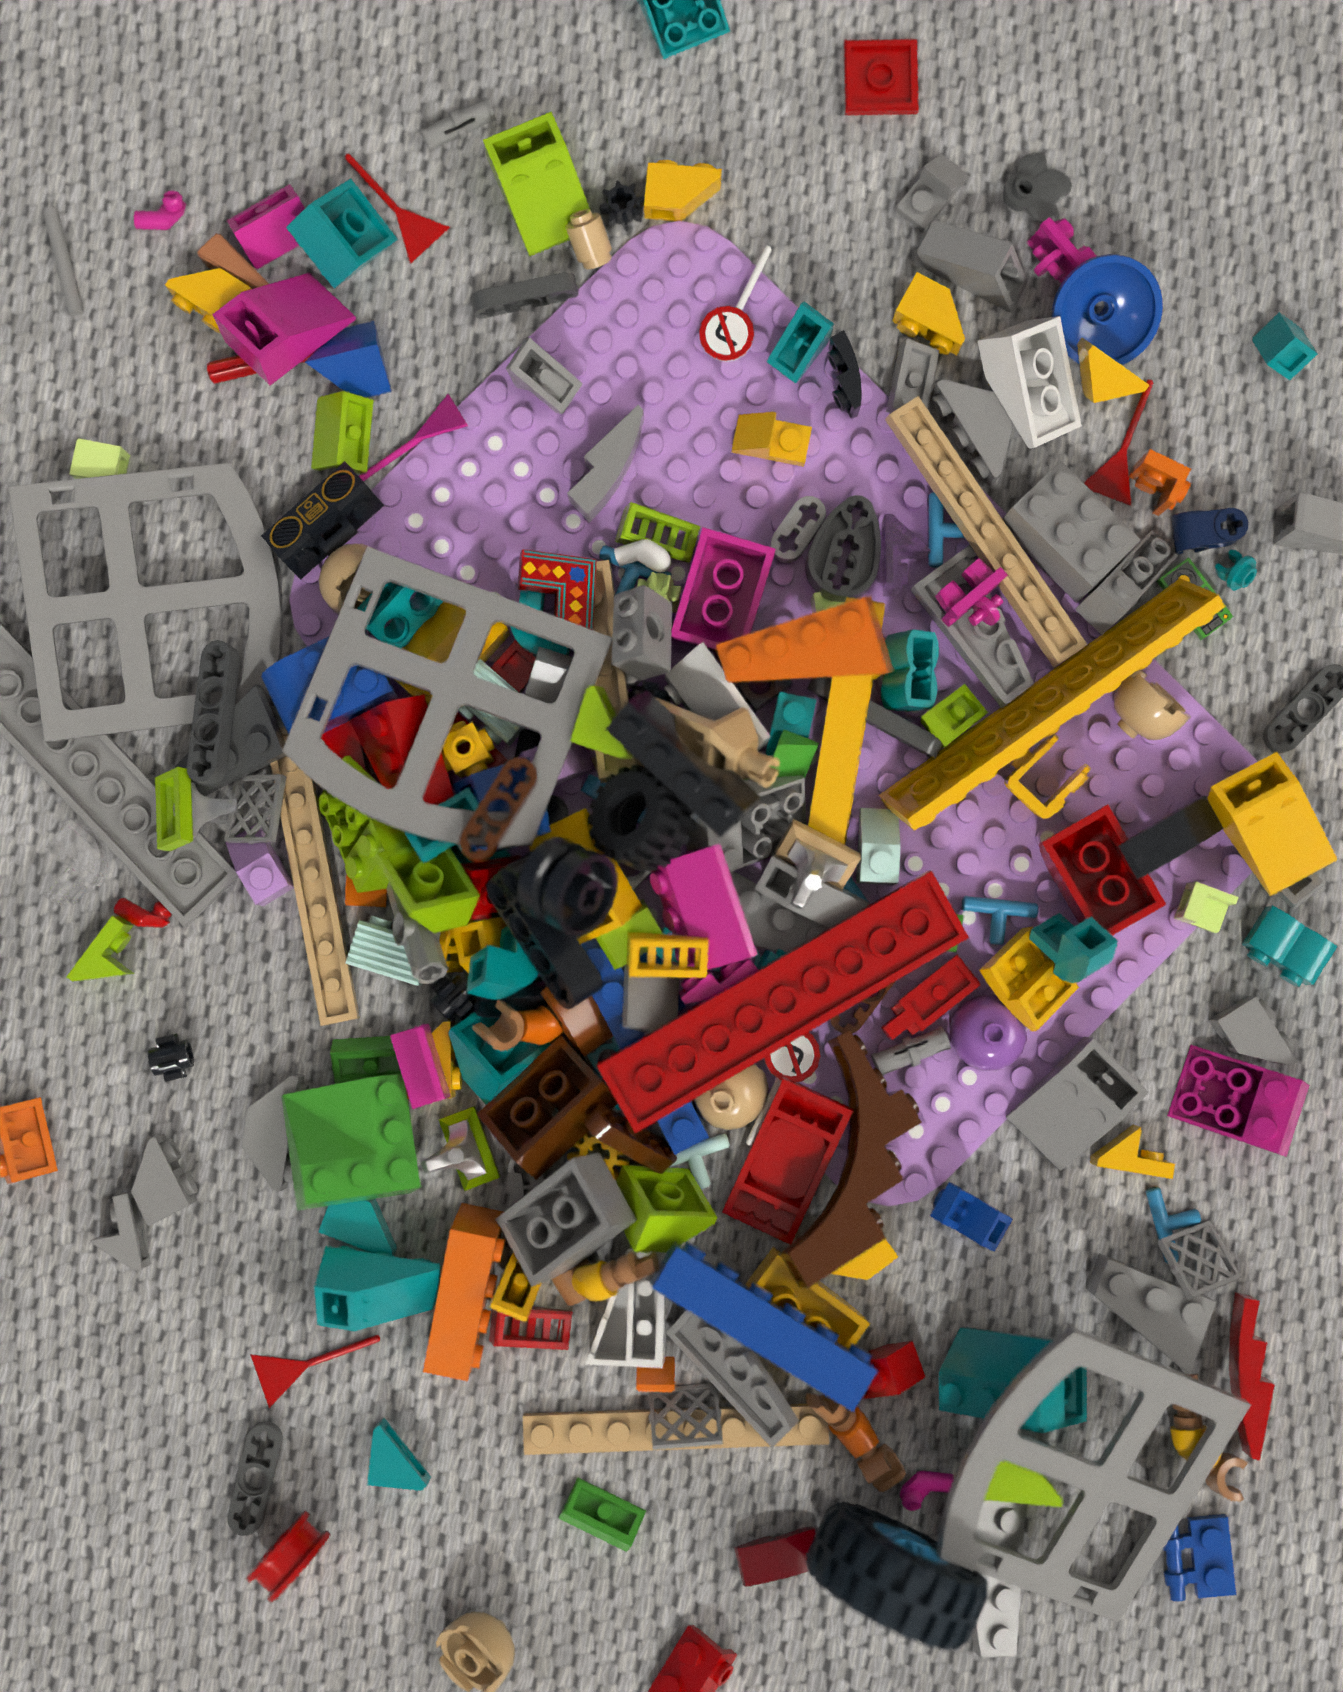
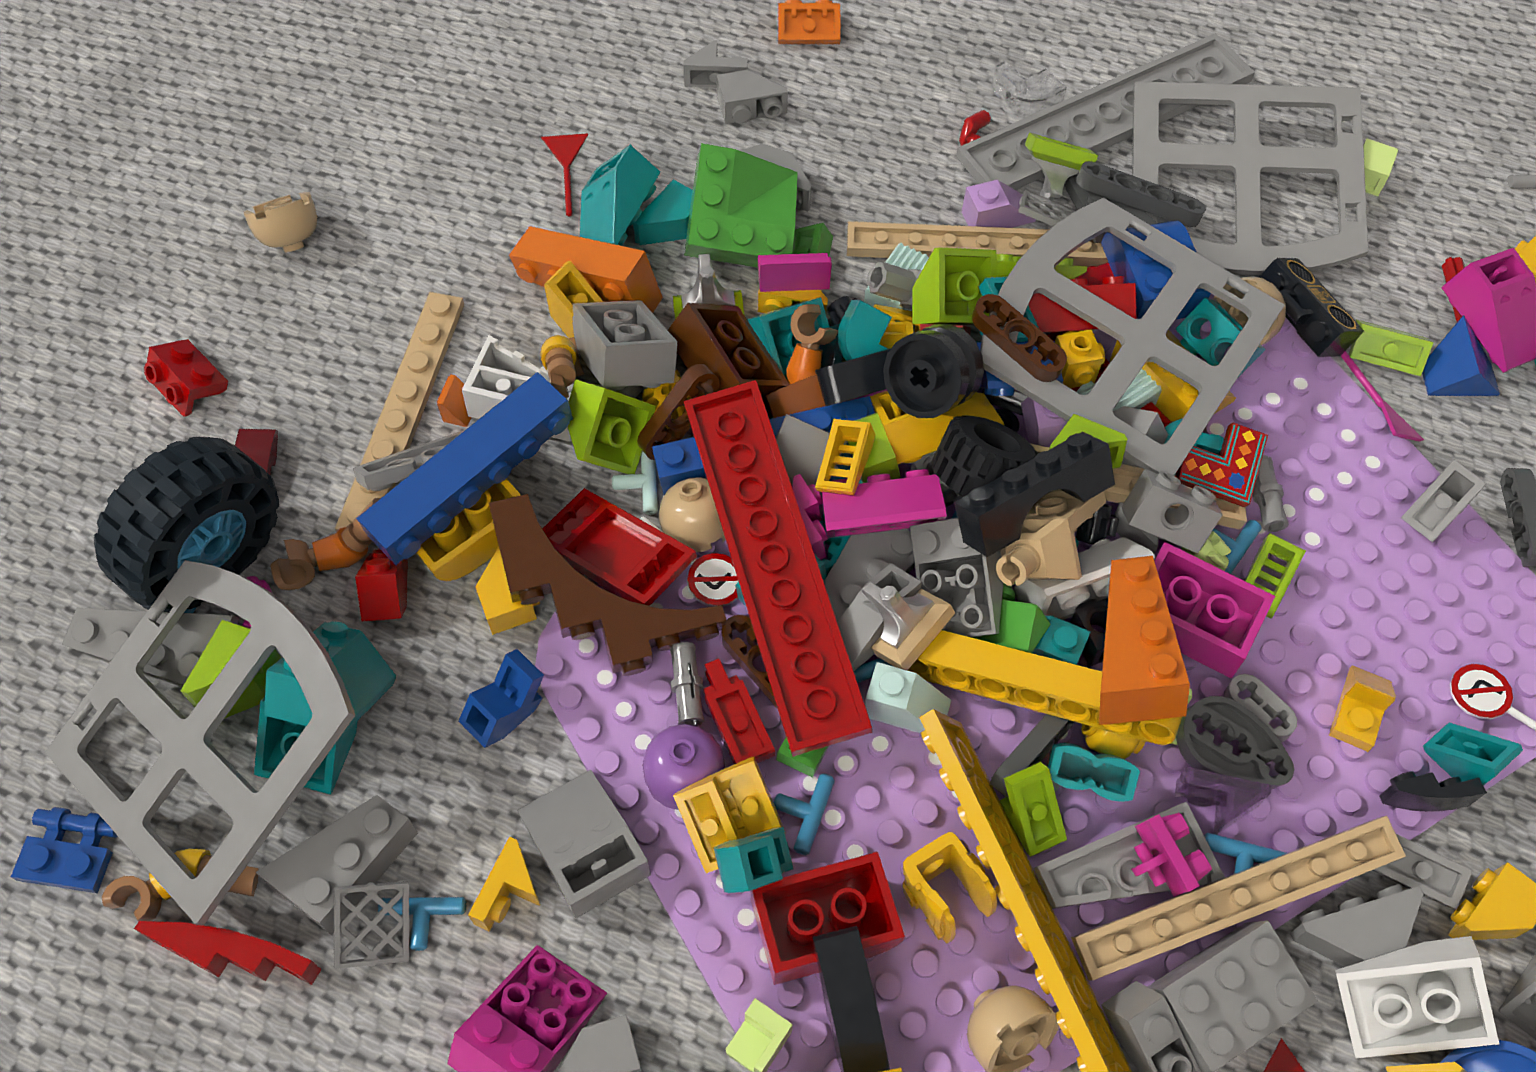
camera: 100 degrees right, 25 degrees down
(97, 959) = (948, 93): lime slope -> none
(171, 1057) = (849, 120): black gear -> none
(238, 1503) = (481, 105): dark grey beam -> none
(288, 1556) = (418, 109): red wheel -> none
(393, 1462) = (464, 199): teal slope -> none
(499, 1339) = (534, 296): red slope -> none
(570, 540) = (1269, 496): none -> light grey pin
(602, 1514) = (353, 340): bright green slope -> none
(607, 465) = (1346, 545): light grey slope -> none
(645, 552) = (1250, 552): white arm -> none
(686, 1441) = (388, 401): light grey window -> none

